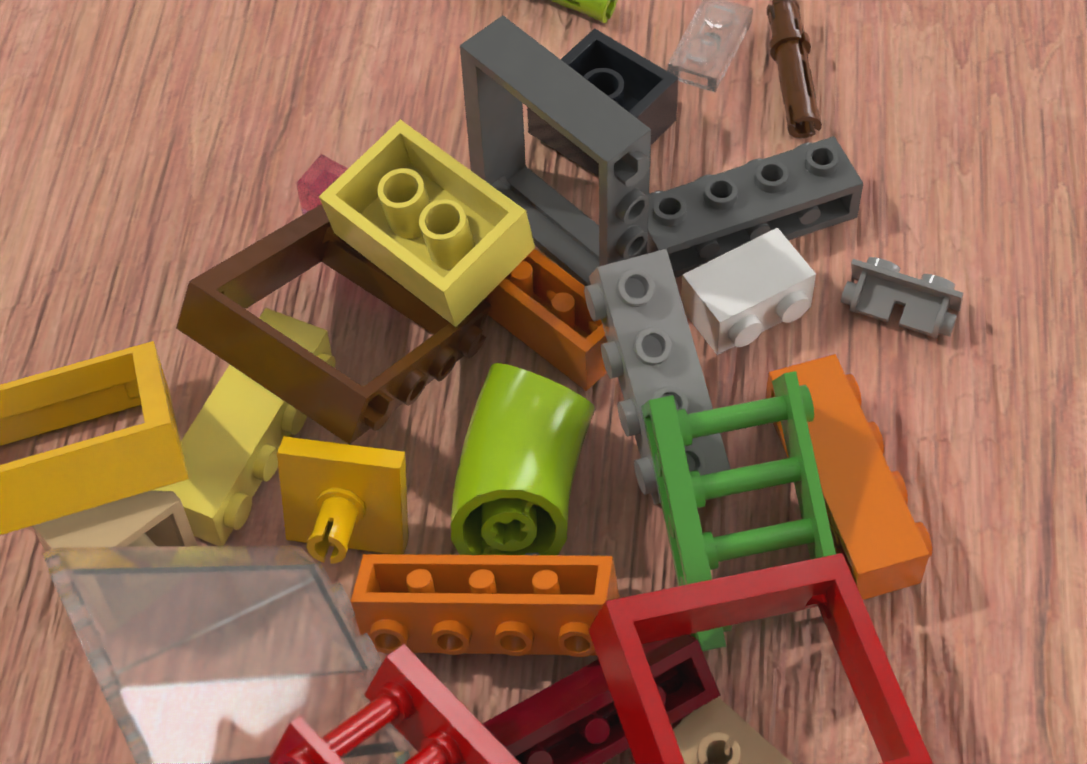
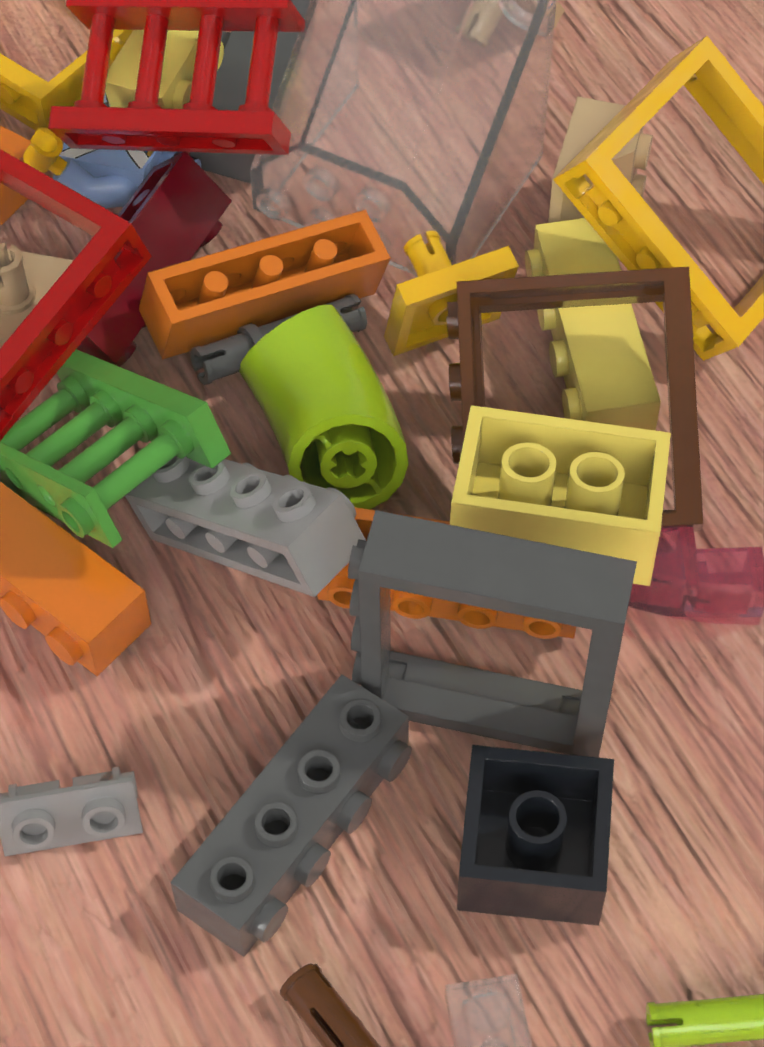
camera: 145 degrees right, 0 degrees up
(748, 291) = (231, 713): white brick -> none

